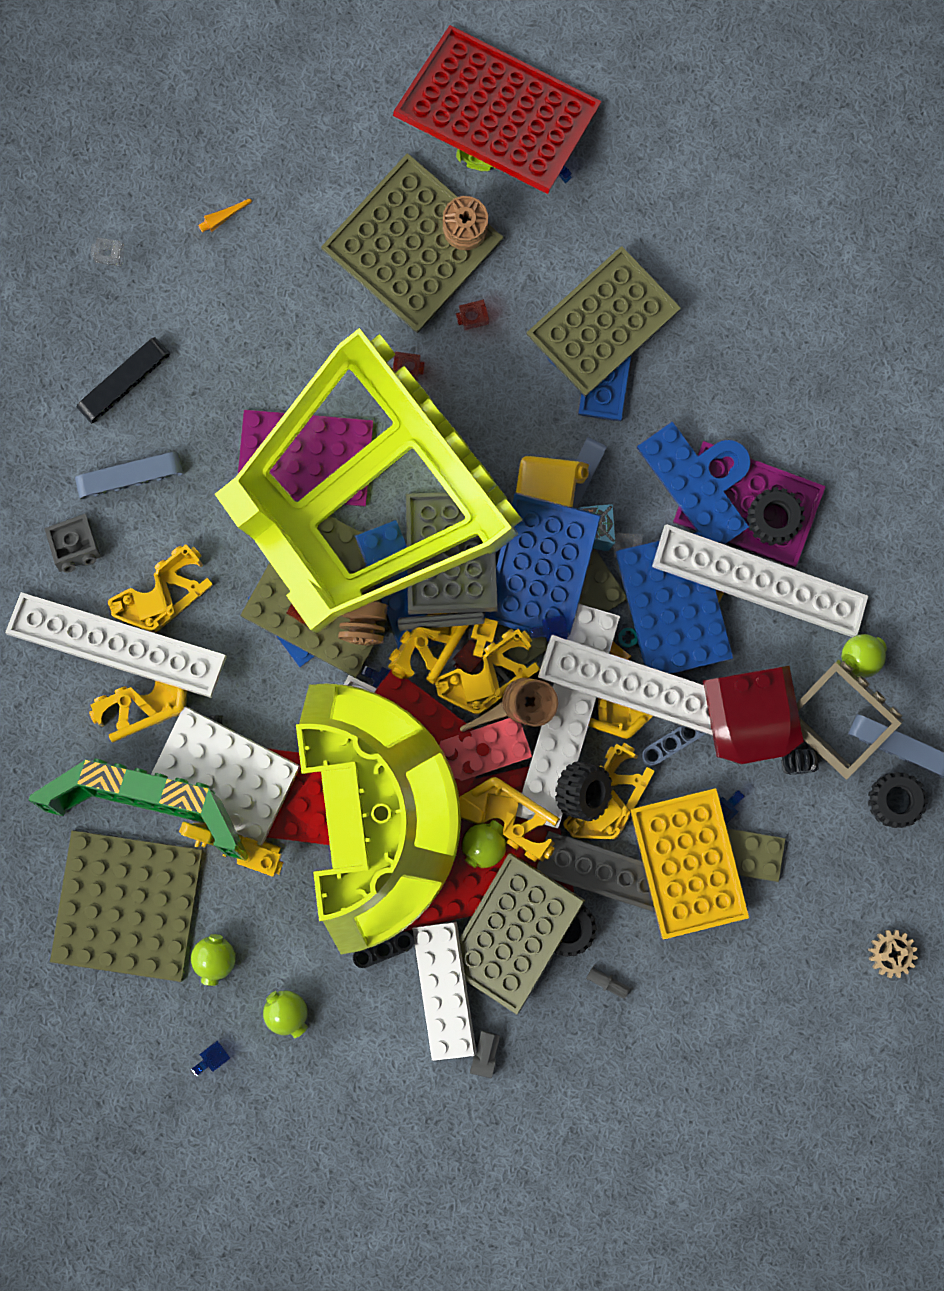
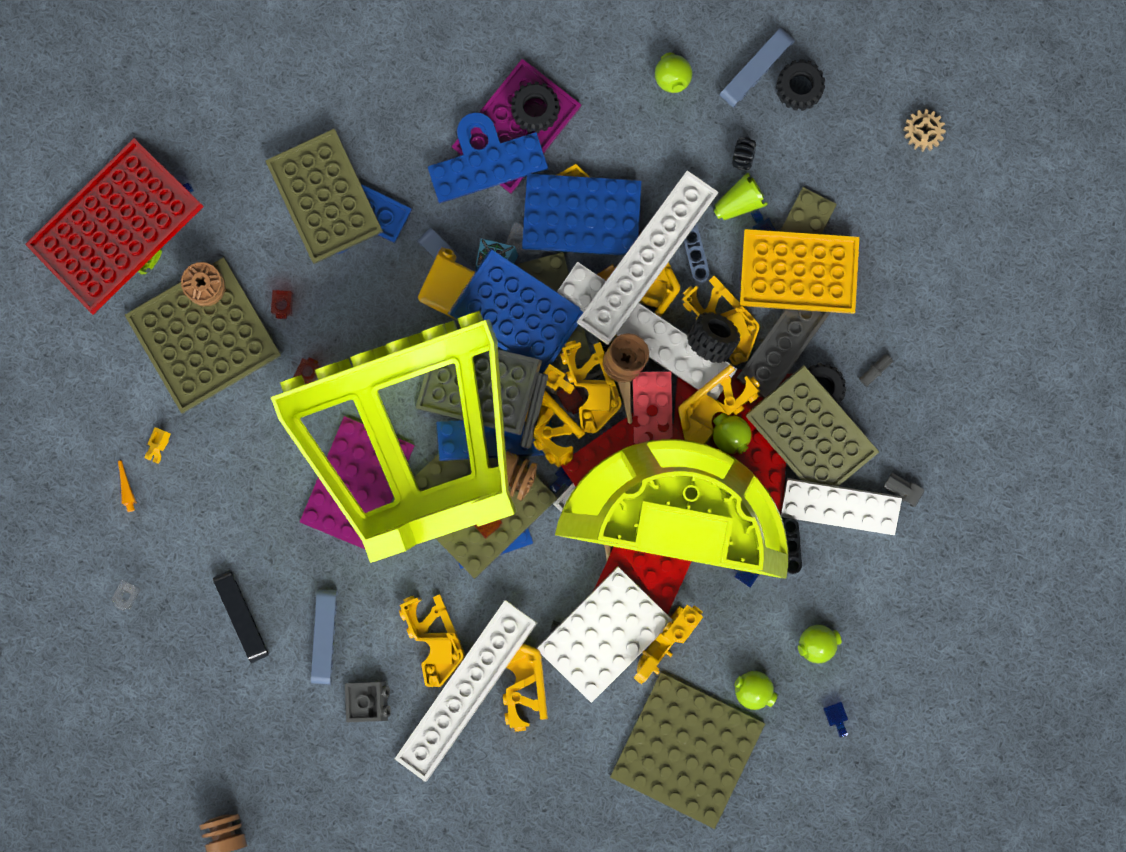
camera: 65 degrees left, 0 degrees up
(141, 791) = (598, 703): green slope -> none
(281, 232) = (157, 442): none -> yellow plate
(551, 626) = (569, 320): clear blue plate -> none
(632, 642) = (590, 265): teal bush -> none
(751, 778) = (740, 199): none -> lime cone
(753, 715) = (695, 178): dark red wedge -> none
(760, 581) = (584, 137): white plate -> none
(876, 699) = (733, 134): dark tan window -> none

